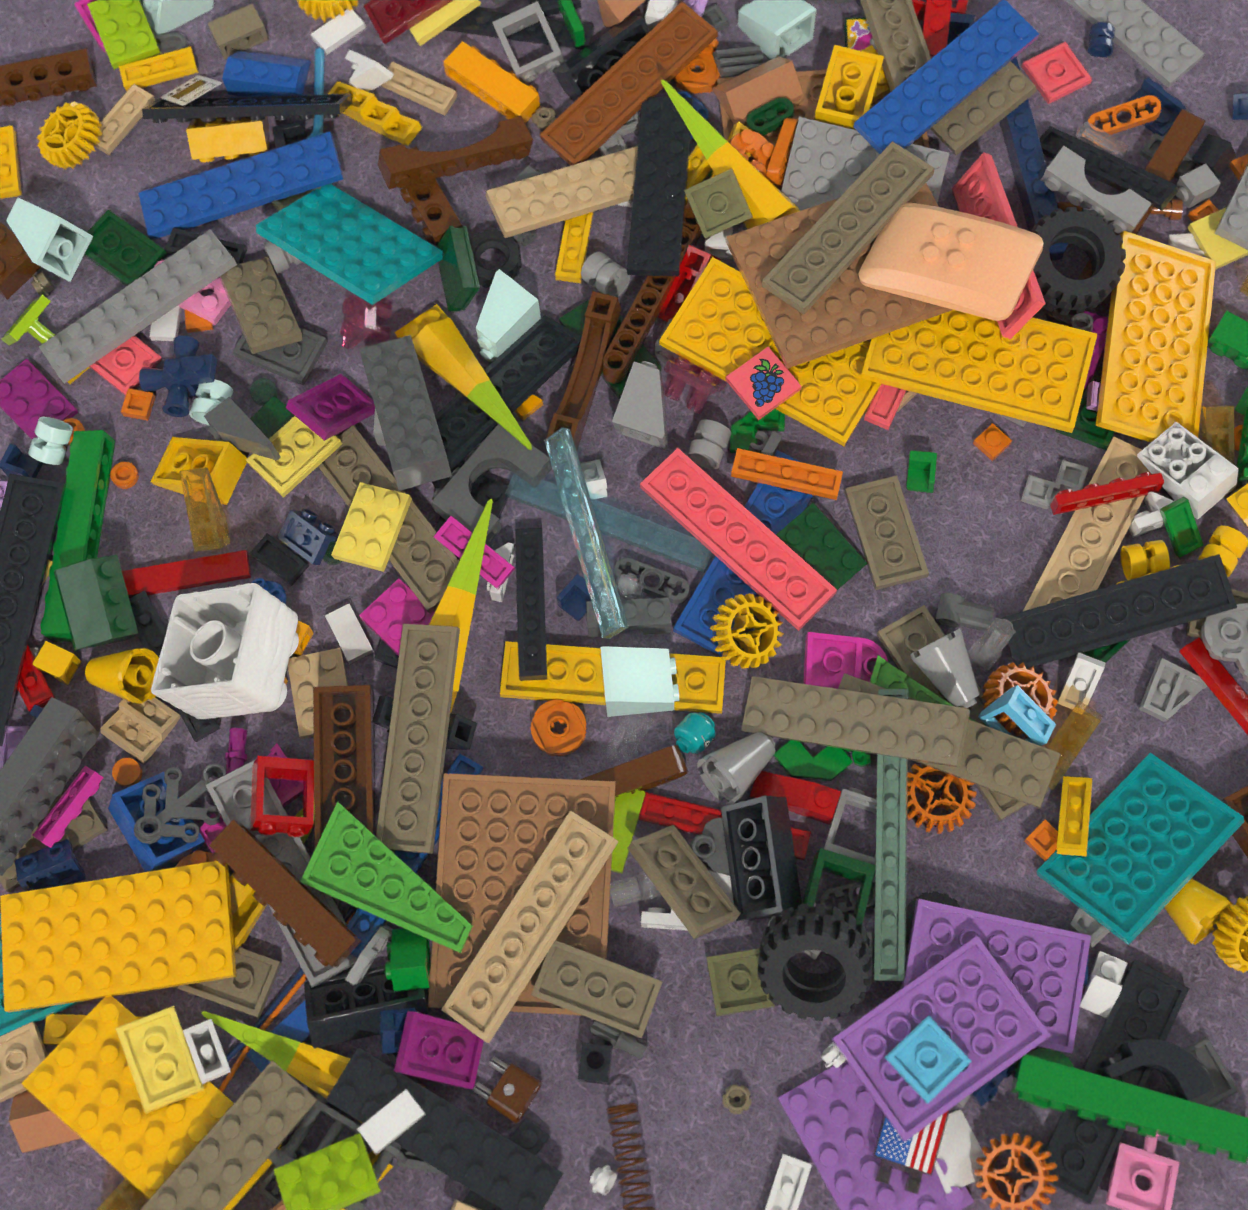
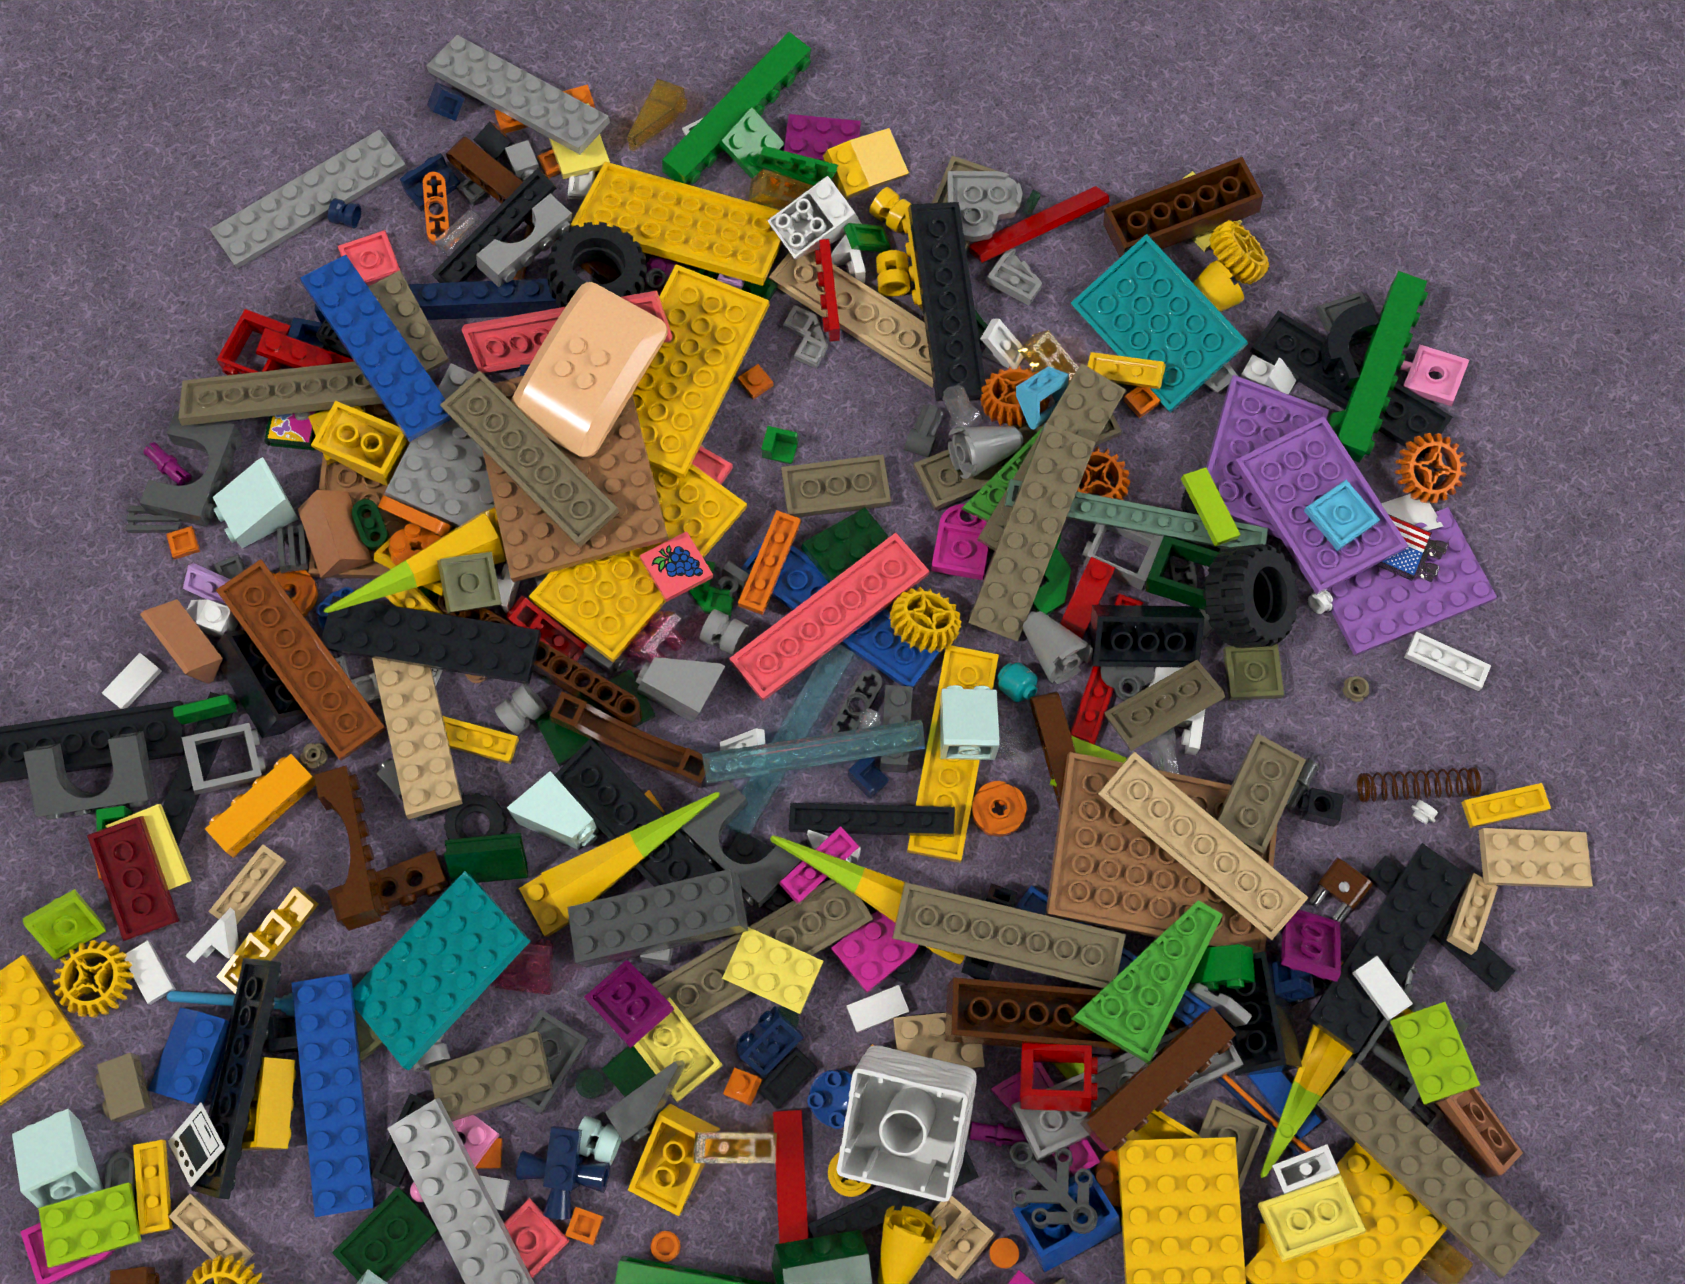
camera: 90 degrees left, 0 degrees up
(267, 520) = (742, 1086): none -> orange plate
(915, 910) = (1210, 506): none -> lime tile

